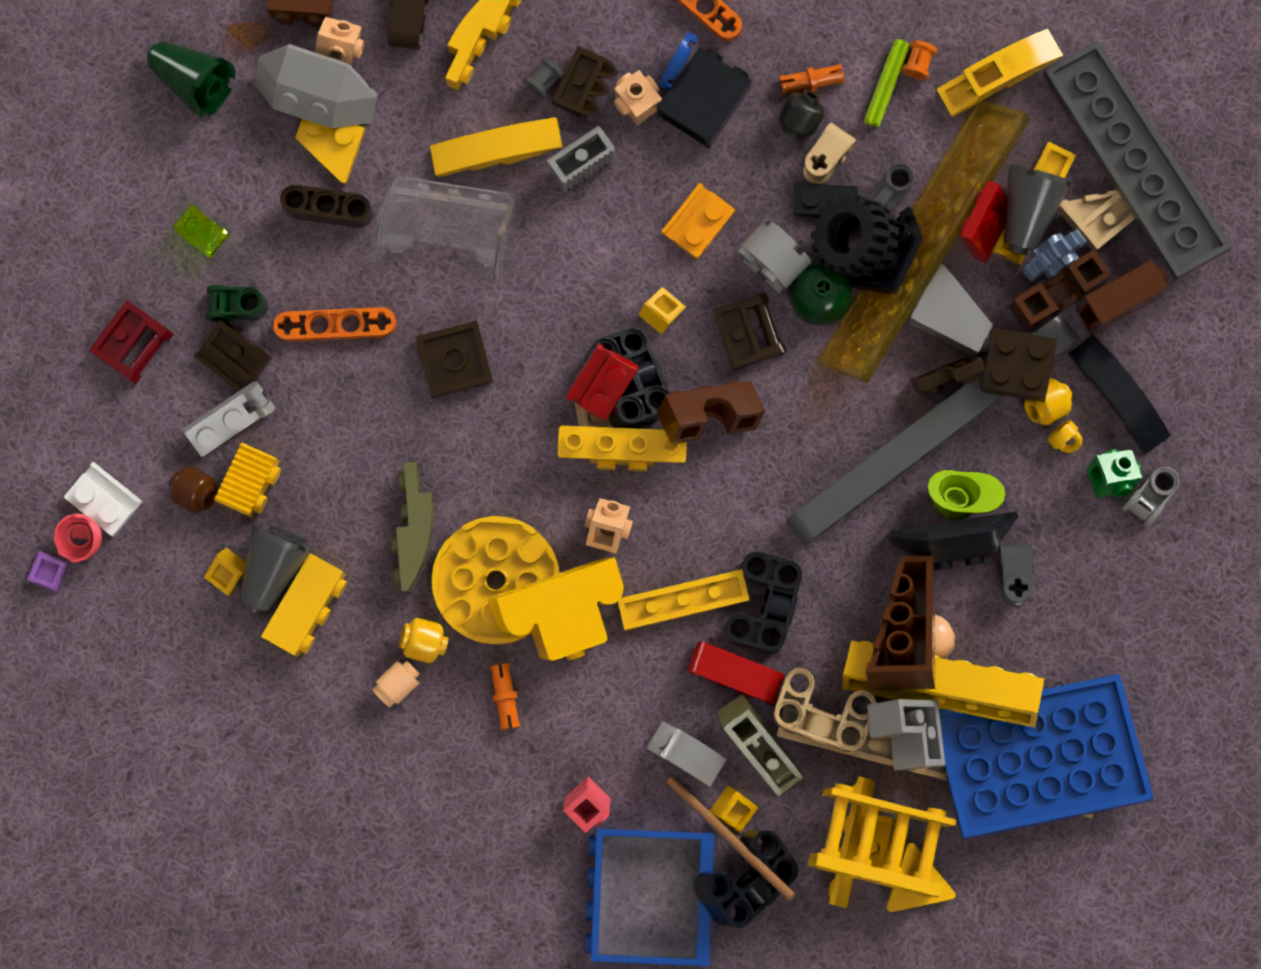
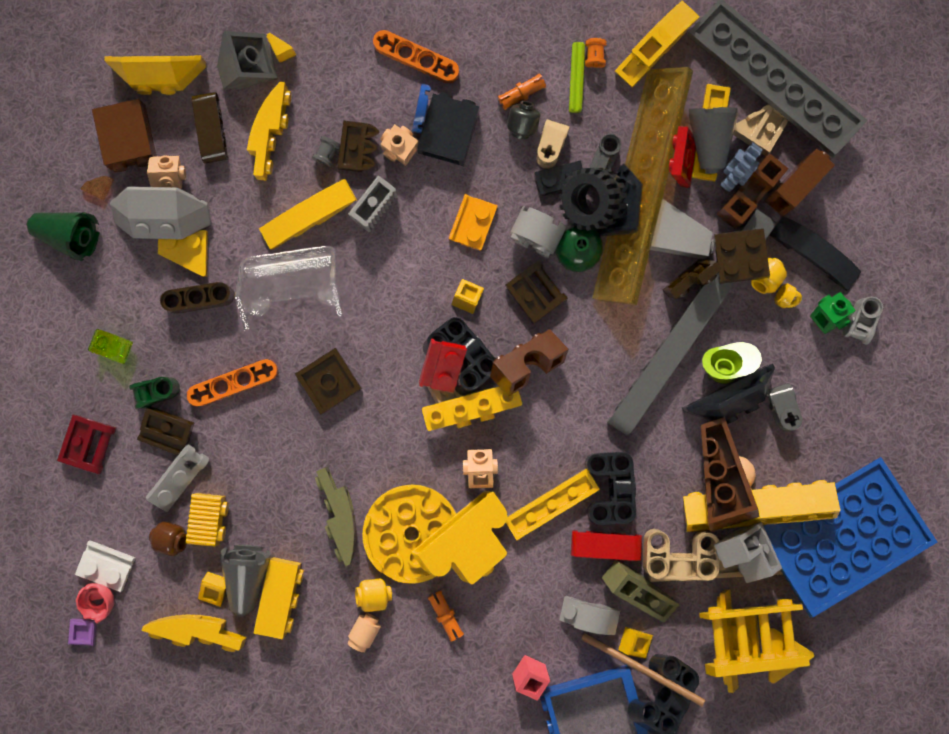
camera: 25 degrees left, 5 degrees up
(179, 606) = (185, 628): none -> yellow slope

